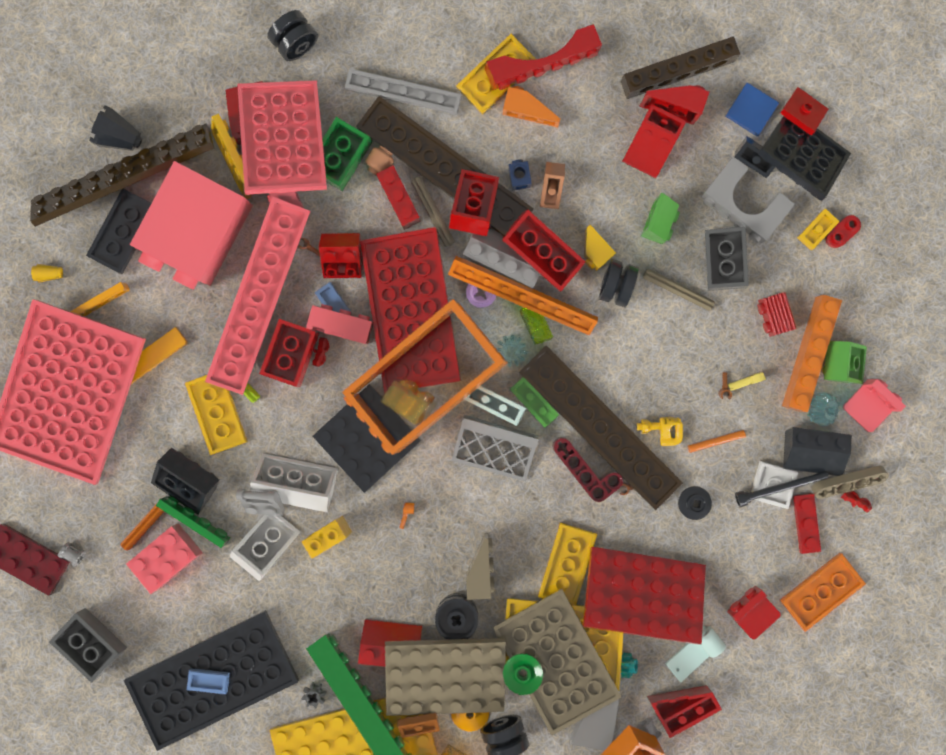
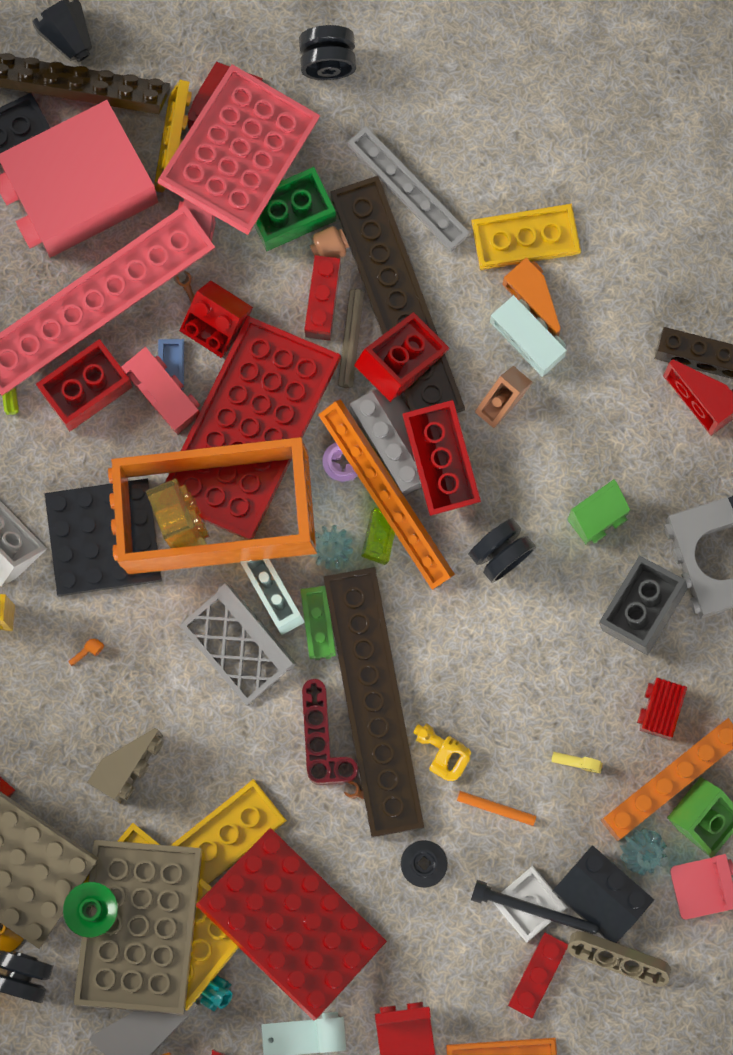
camera: 30 degrees right, 10 degrees down
(320, 357) = (115, 412): red piece -> none
(459, 628) = (60, 786): black wheel -> none
(508, 70) = (535, 239): red arch -> none
(519, 183) = (474, 372): dark blue brick -> none
(541, 136) = (528, 335): none -> light aqua brick
(596, 249) = (504, 499): yellow slope -> none
(654, 141) = (650, 422): red slope -> none
(678, 289) = (569, 607): dark tan axle -> none
(725, 387) = (549, 751): dark orange hand -> none
(854, 498) = (618, 993): red piece -> none

